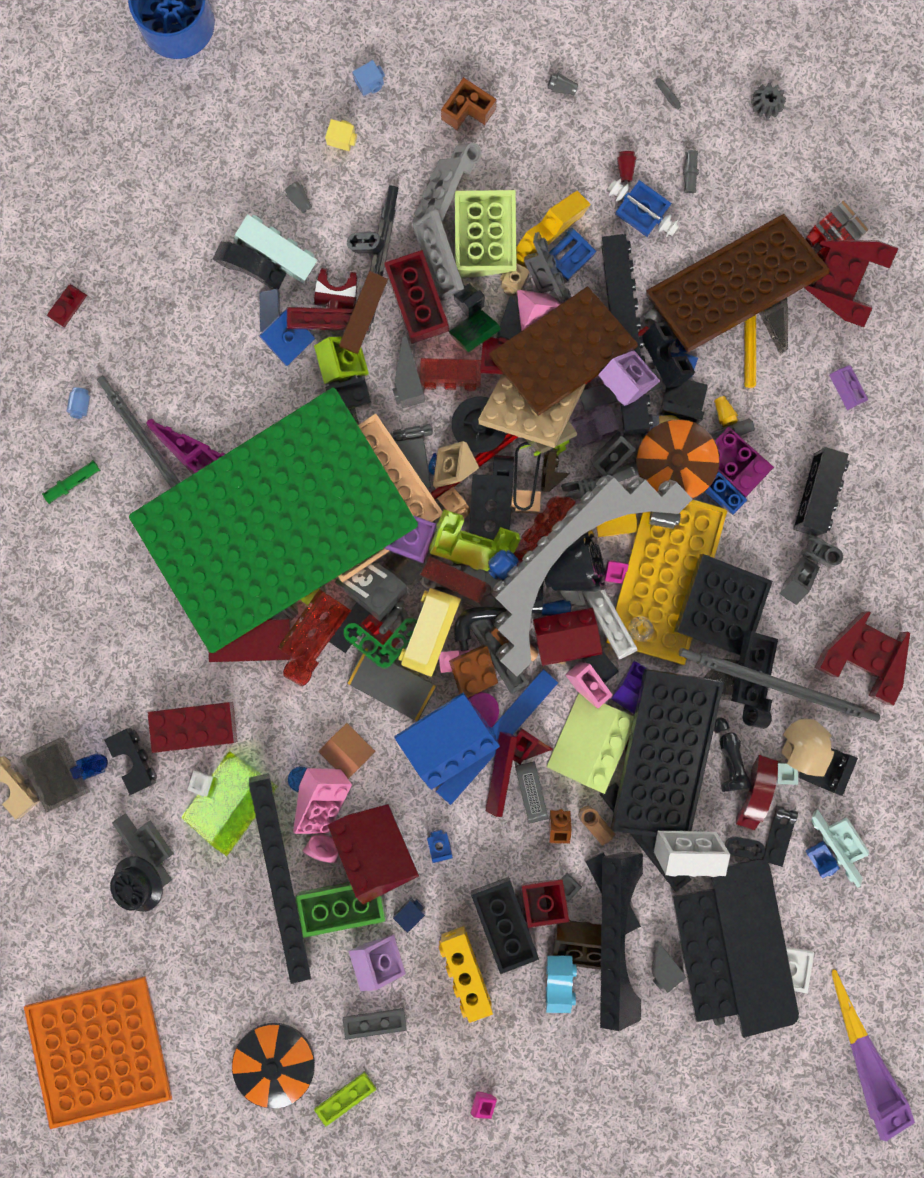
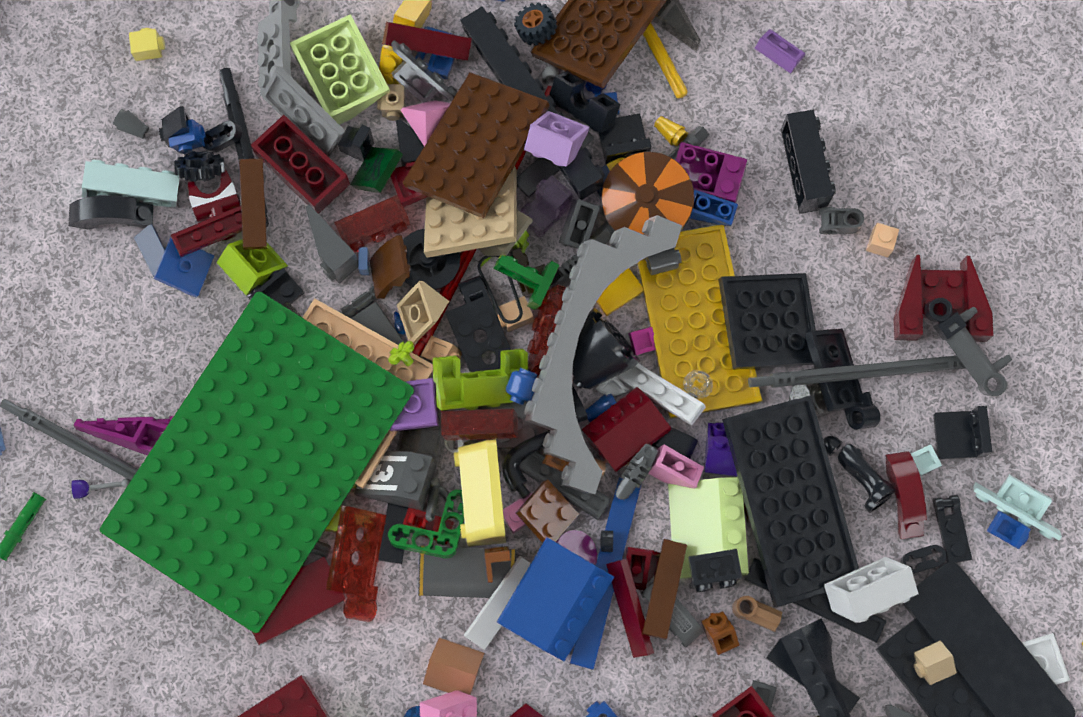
camera: 25 degrees left, 10 degrees down
(130, 475) = (81, 488): none -> hinge
(333, 219) = (174, 124): none -> black slope
(335, 235) = (187, 142): none -> blue bracket
(336, 259) = (199, 166): none -> black gear
(385, 731) = (485, 624): none -> white tile
(417, 686) = (495, 554): none -> dark orange panel
(422, 492) = (402, 354): none -> lime plant
(429, 400) = (363, 260): none -> medium blue tile
(446, 416) = (389, 266): none -> reddish brown slope
(508, 714) = (606, 541): none -> black axle
(534, 774) = (664, 589): none -> reddish brown tile
(552, 480) = (528, 277): none -> green bracket
(558, 673) = (636, 471): none -> dark grey hinge
(566, 243) = (427, 40): none -> dark red tile
(579, 778) = (714, 568): none -> black bracket
(656, 263) = (535, 24): none -> black wheel
(710, 933) = (934, 663): none -> tan brick
(800, 581) = (833, 260): dark grey arch -> none
(808, 747) = (931, 420): tan brick -> none
(847, 584) = (882, 240): none -> light nougat brick
(864, 687) = (954, 331): none -> dark grey piece

